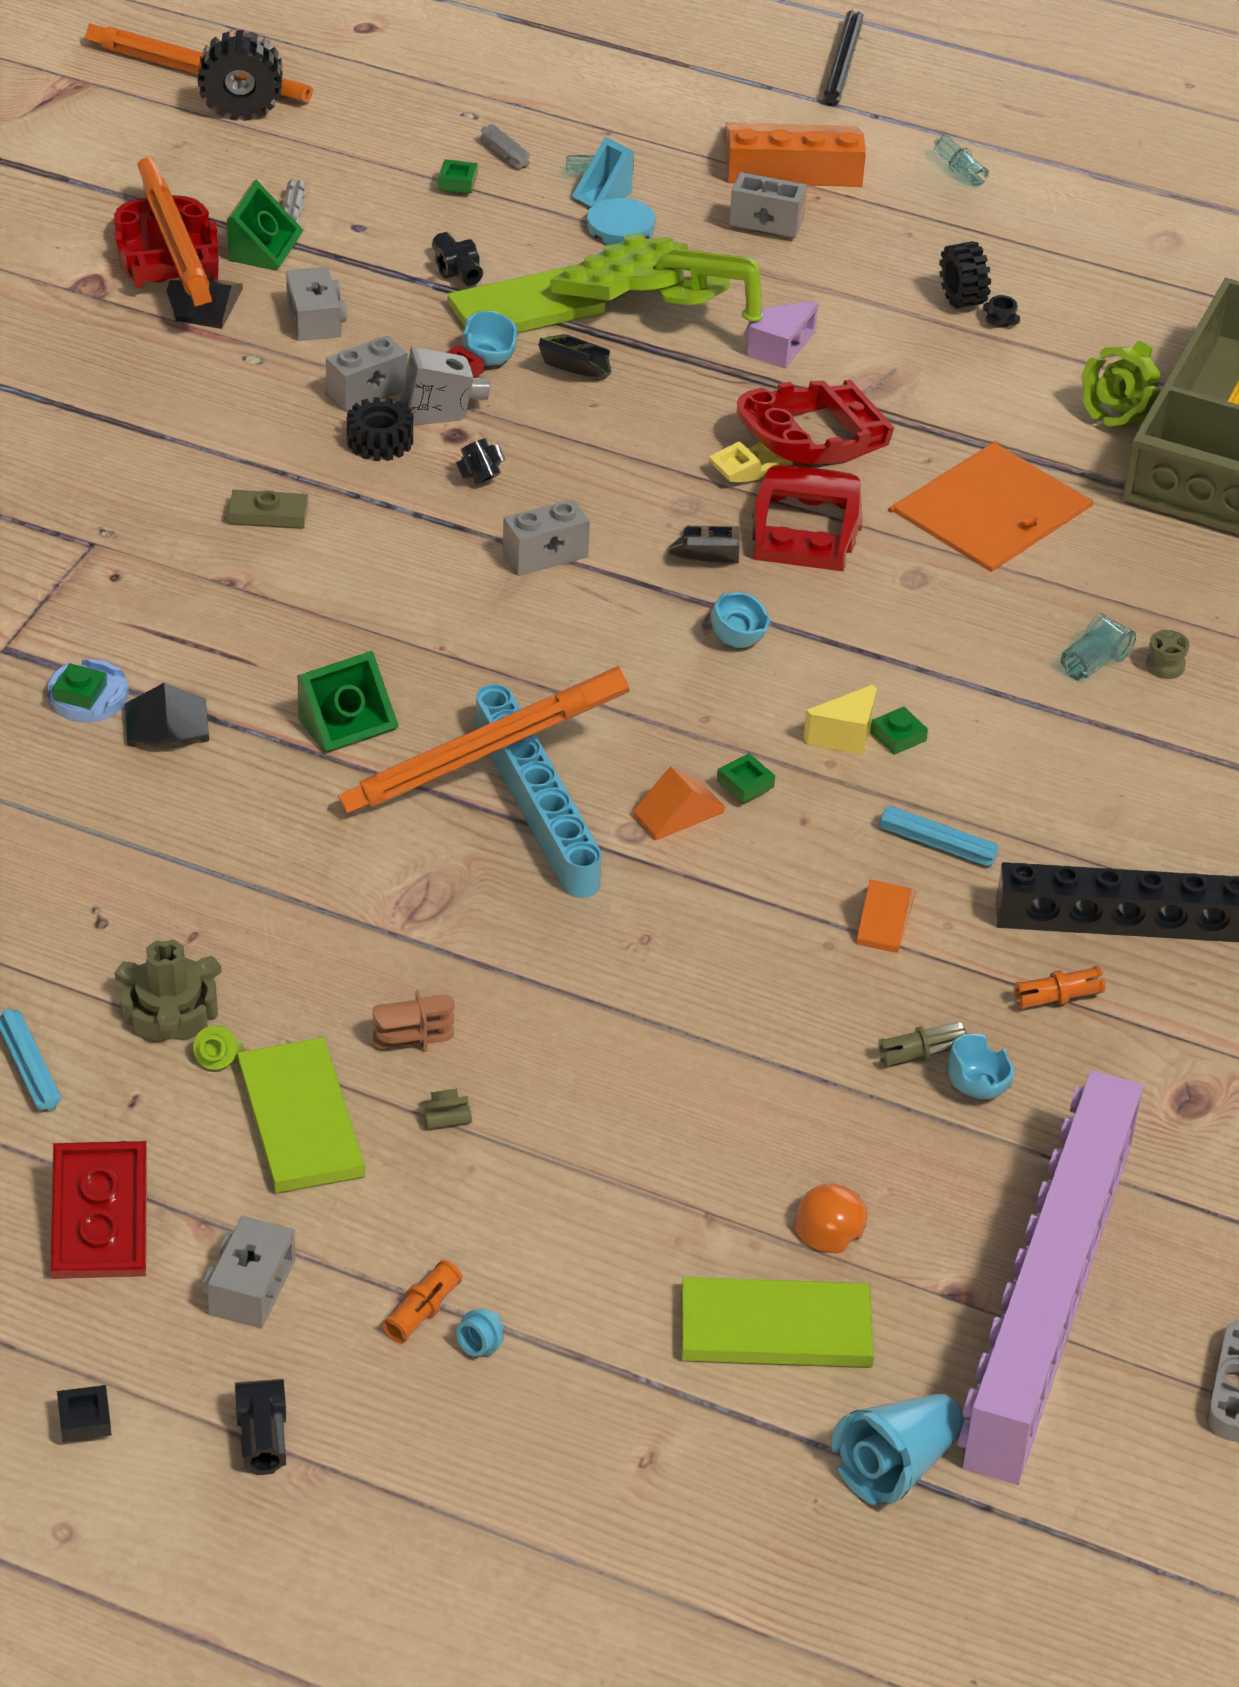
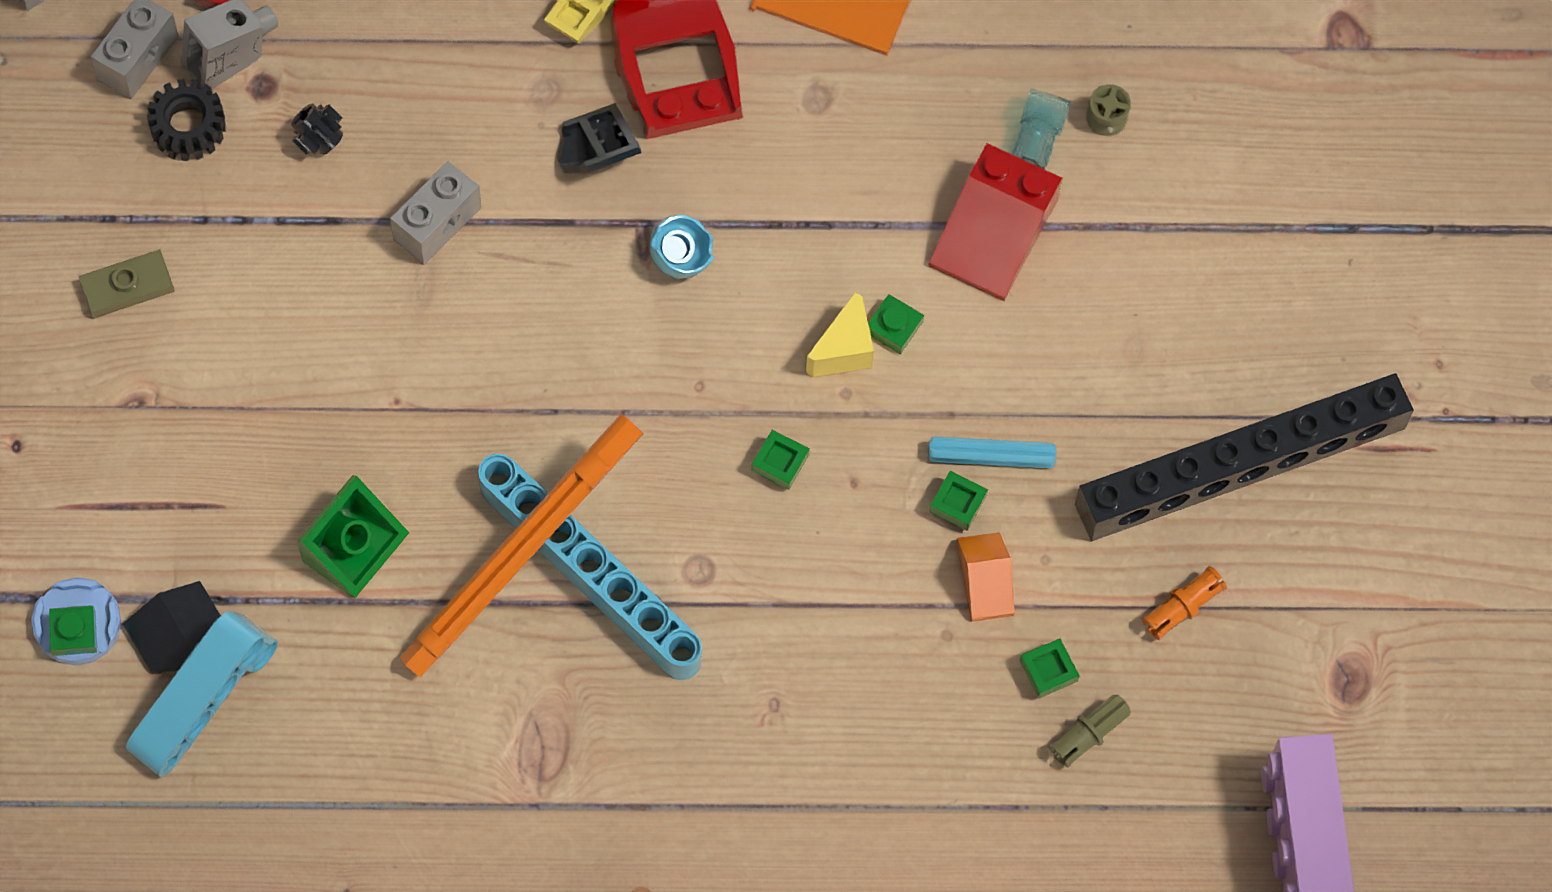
camera: 25 degrees left, 25 degrees up
(156, 748) = (199, 689): none -> medium azure beam
(676, 804) = (730, 523): orange slope -> none
(889, 854) = (958, 500): none -> green plate
(908, 989) = (1049, 668): none -> green plate
(977, 1069) = (1157, 742): medium azure hair -> none
(1028, 688) = (996, 221): none -> slope

